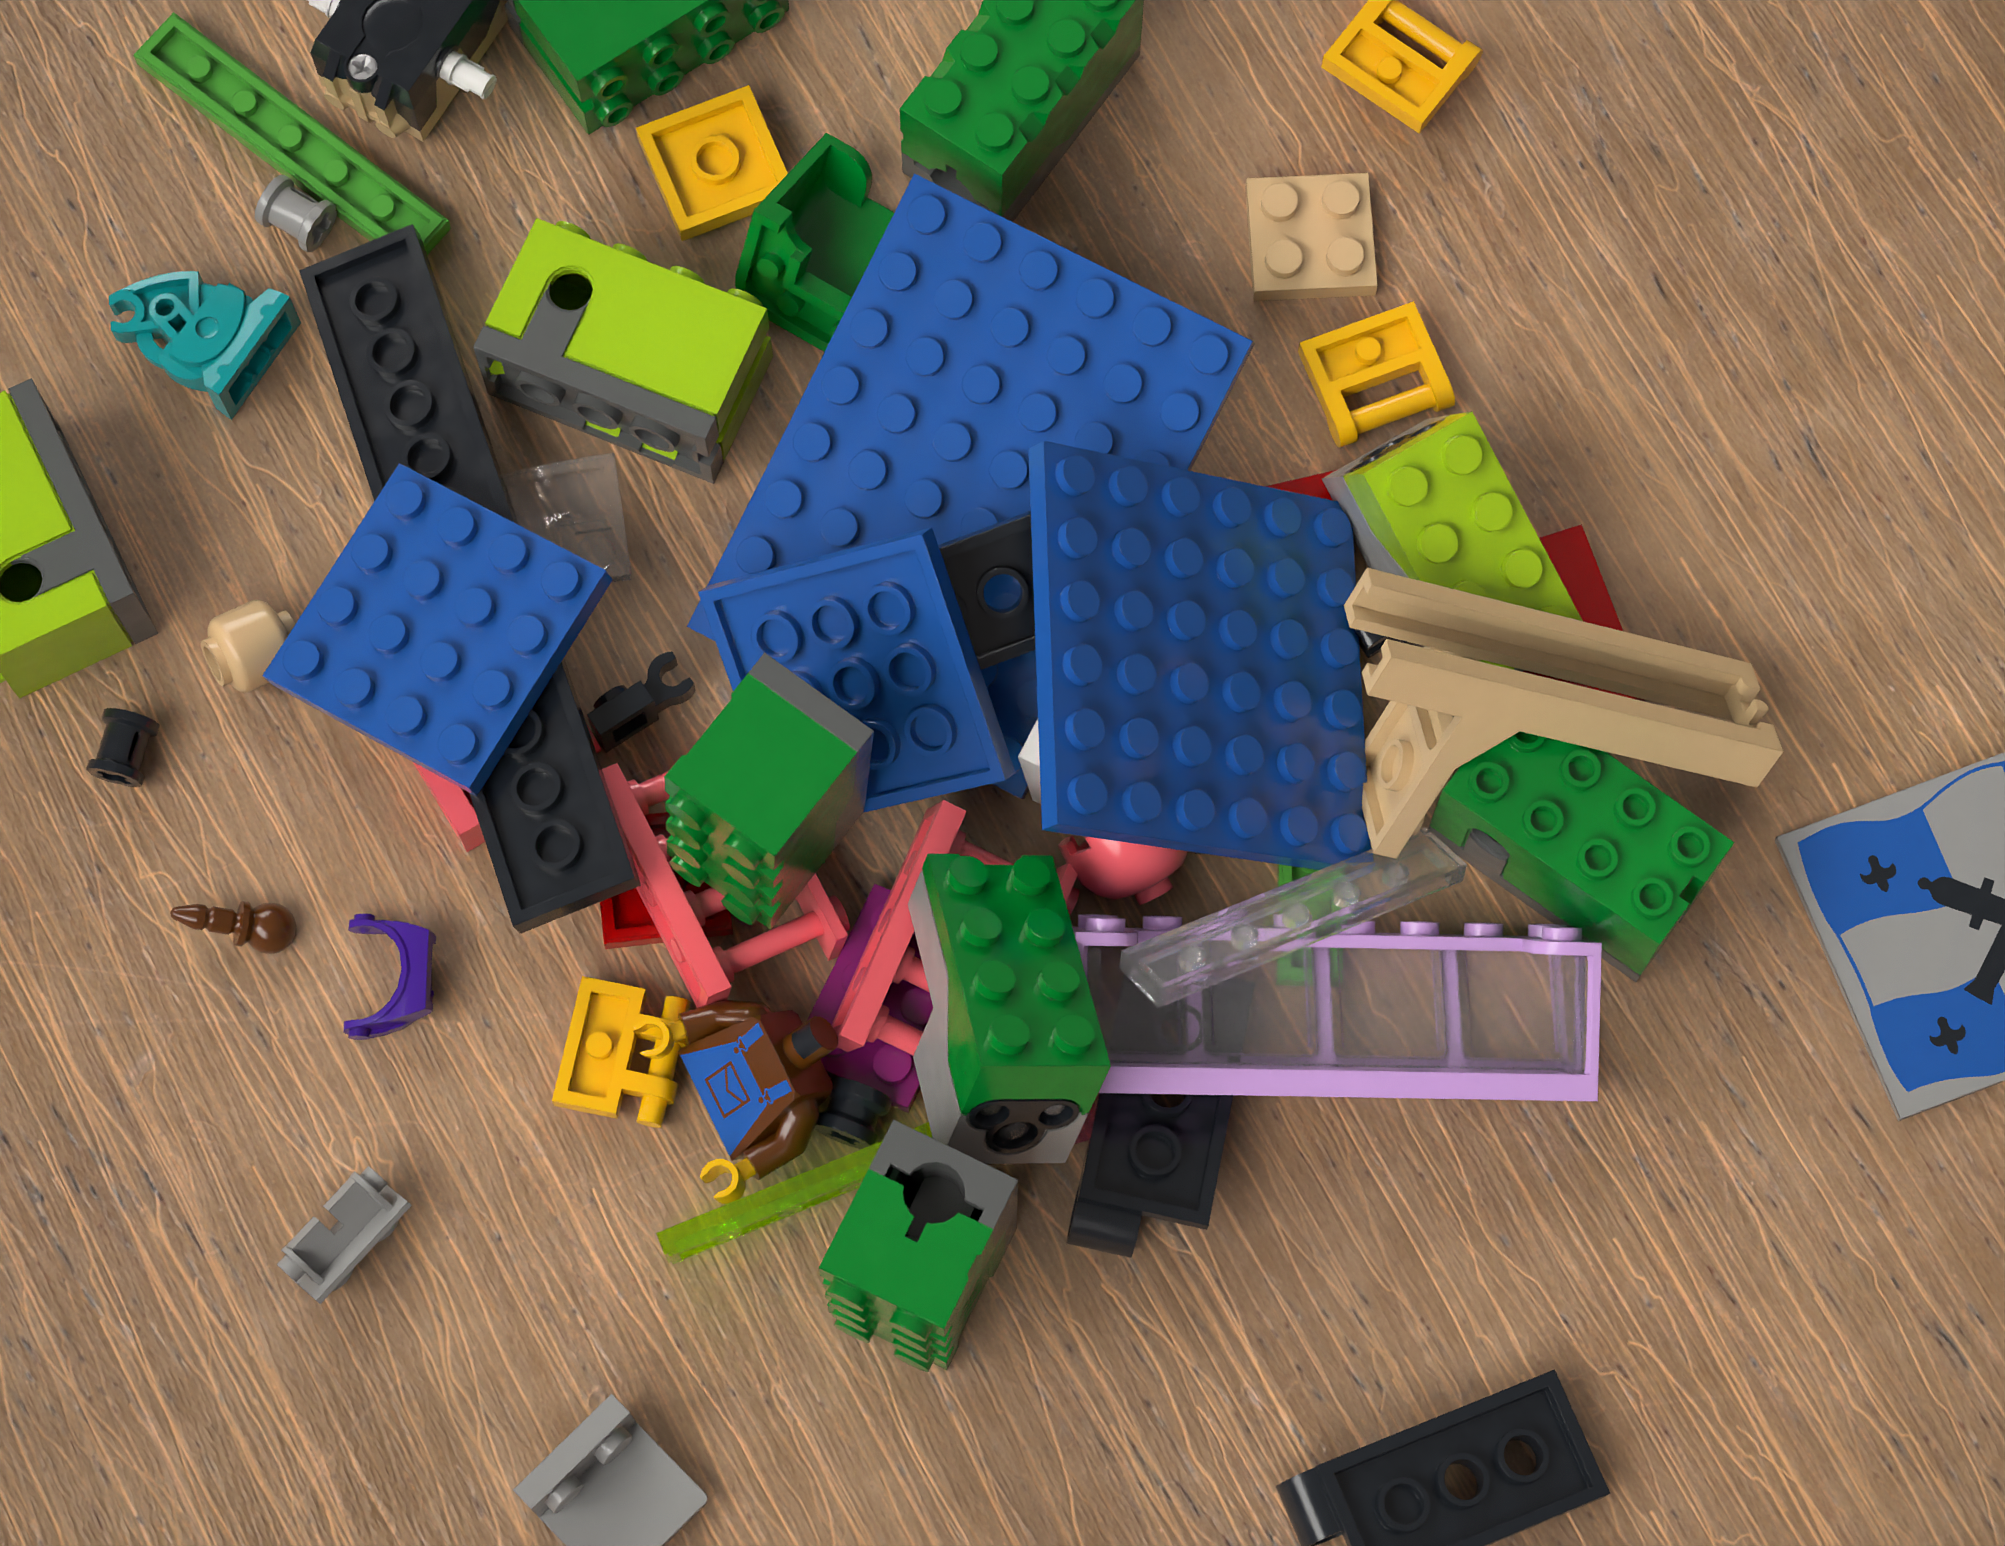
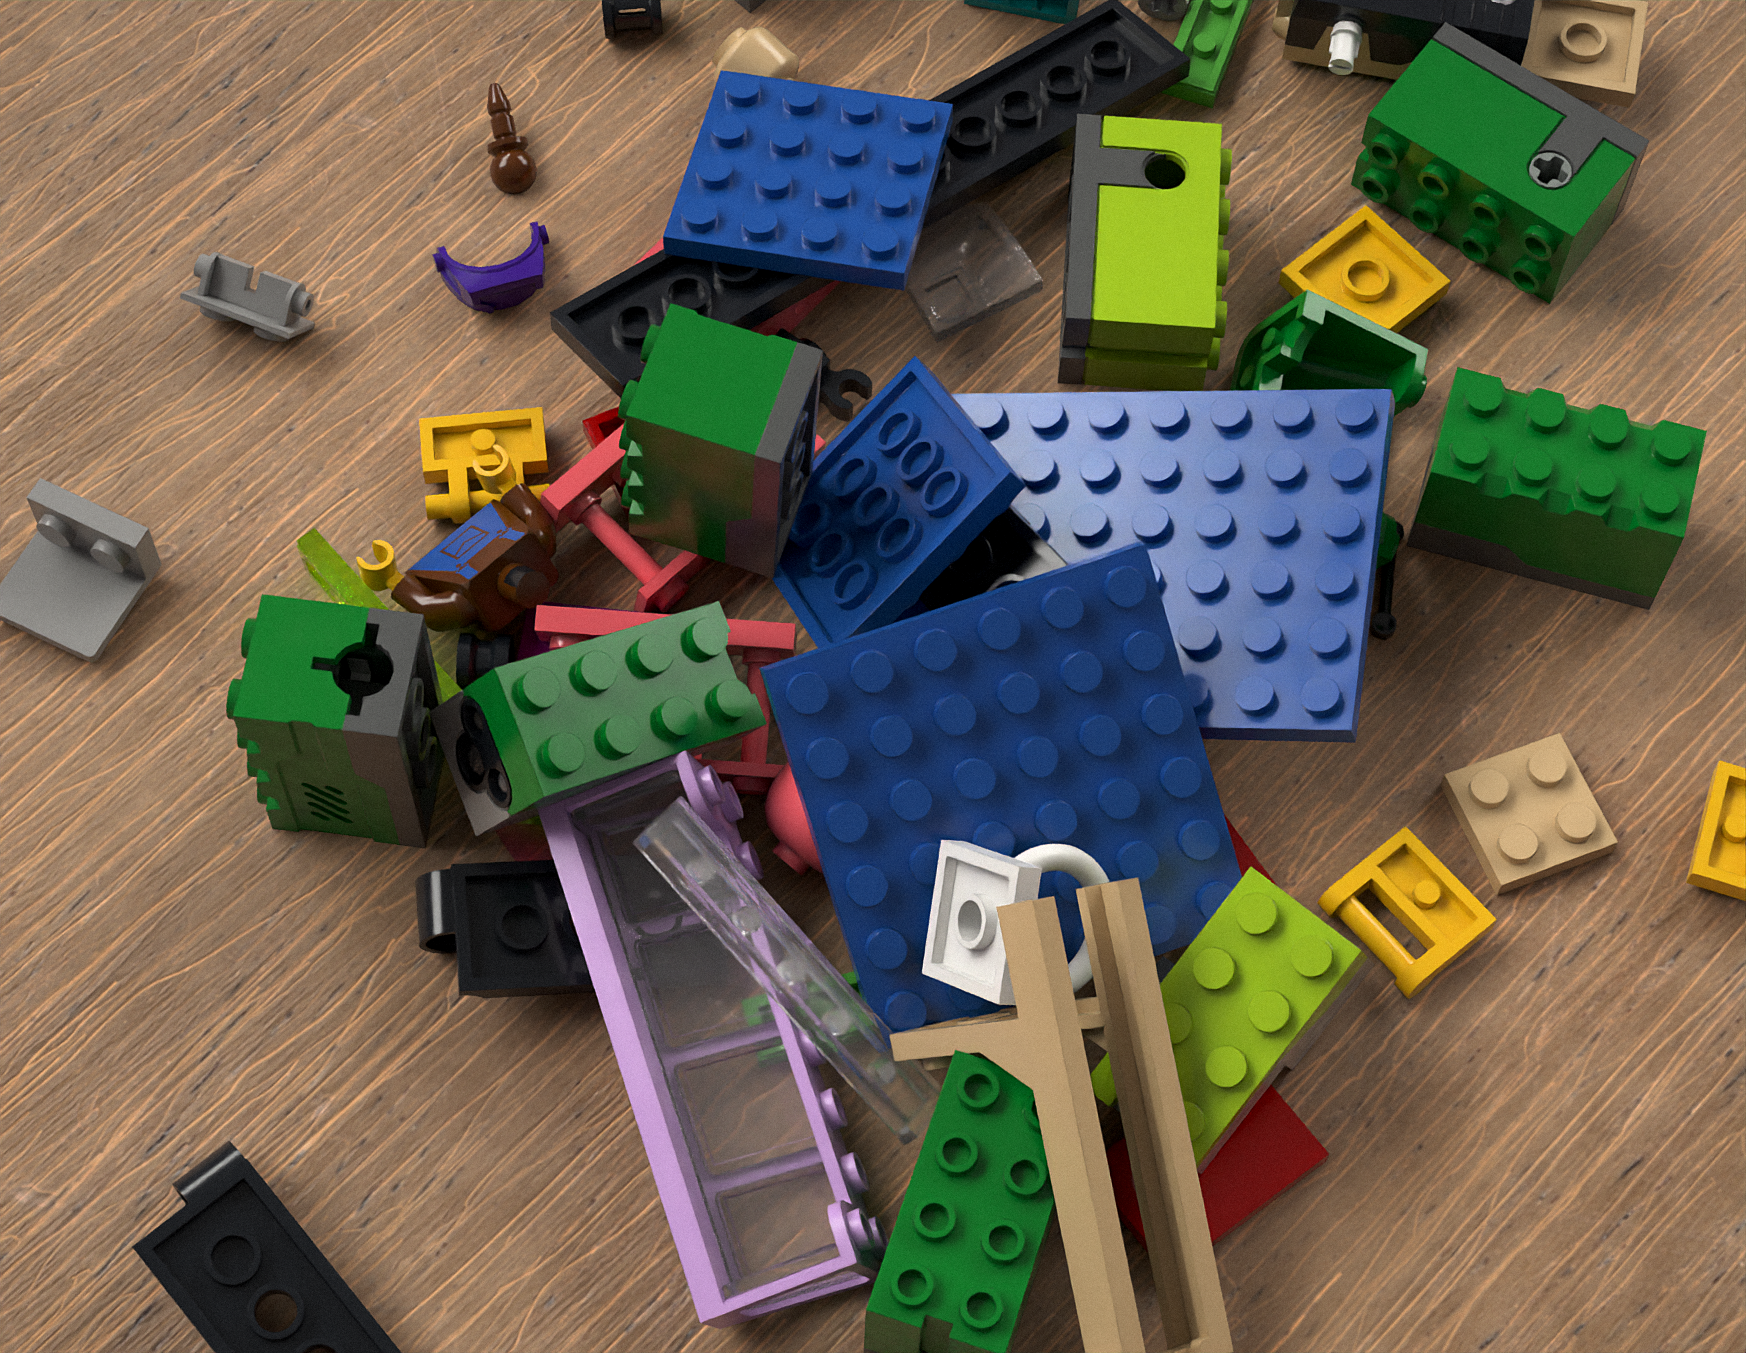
camera: 70 degrees right, 10 degrees down
(1320, 715) = (964, 924): none -> white tile

